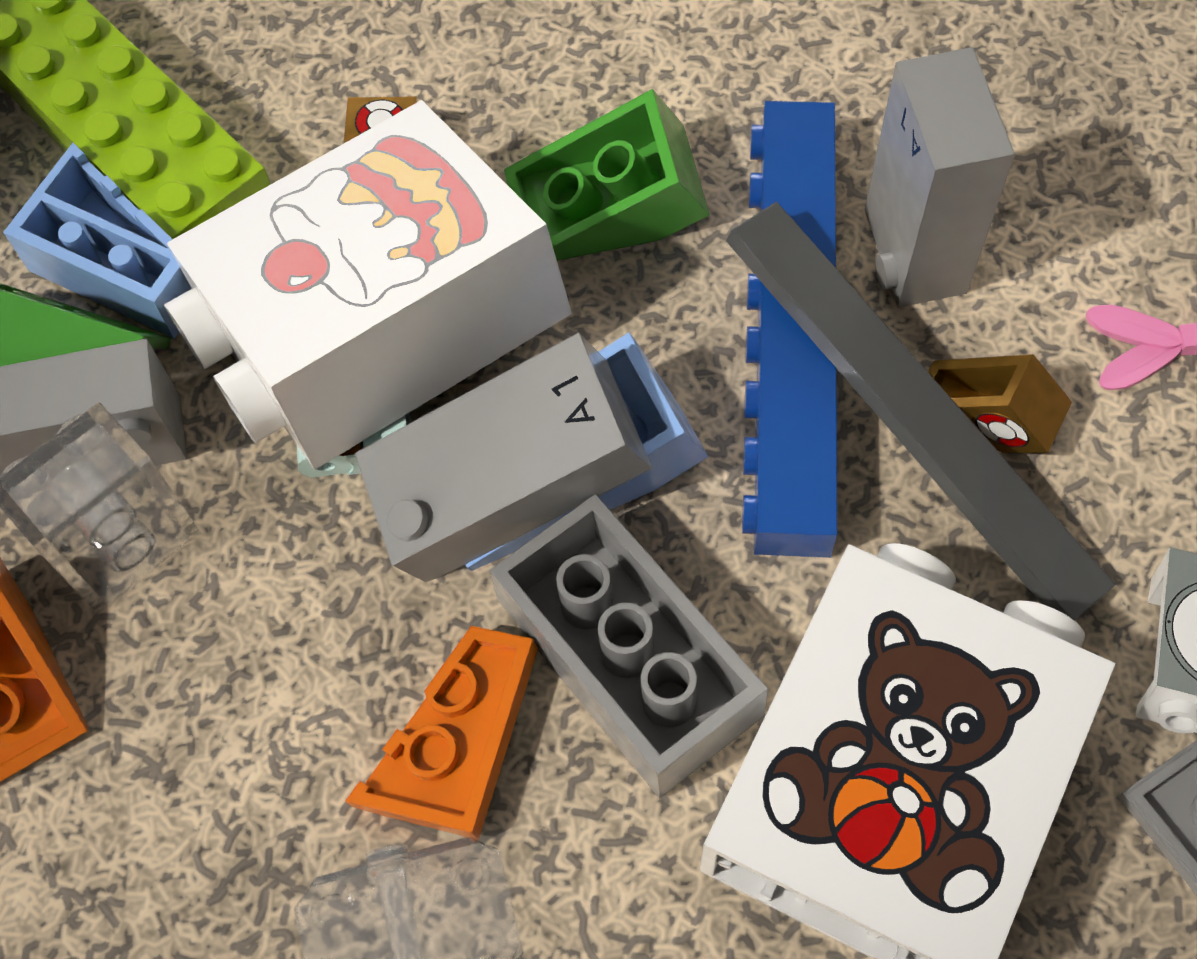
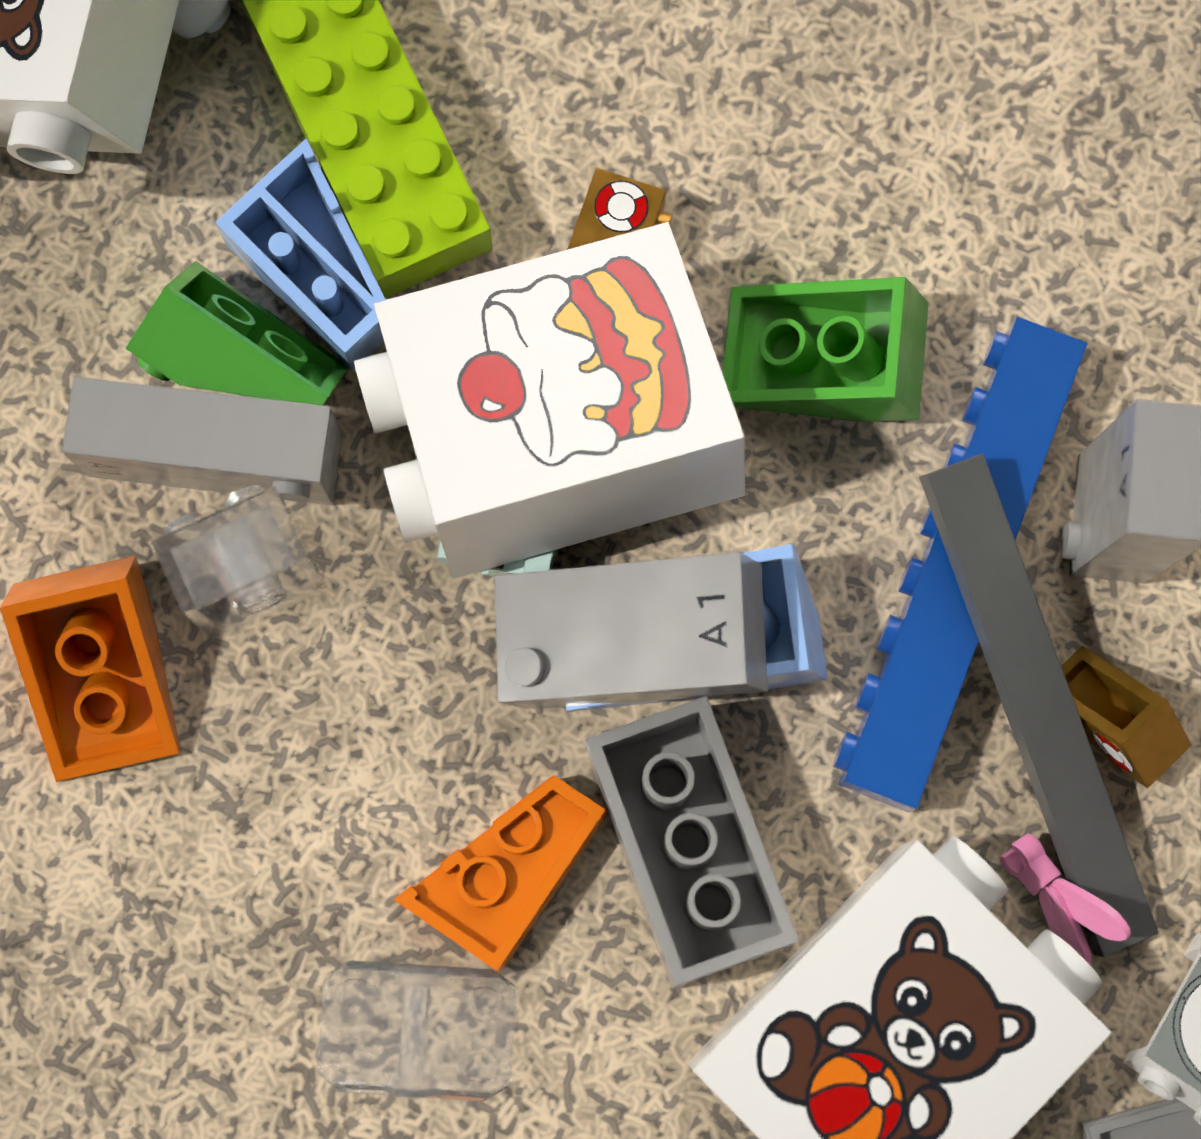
camera: 10 degrees right, 15 degrees up
(1012, 578) = (1062, 901): none -> bright pink piece

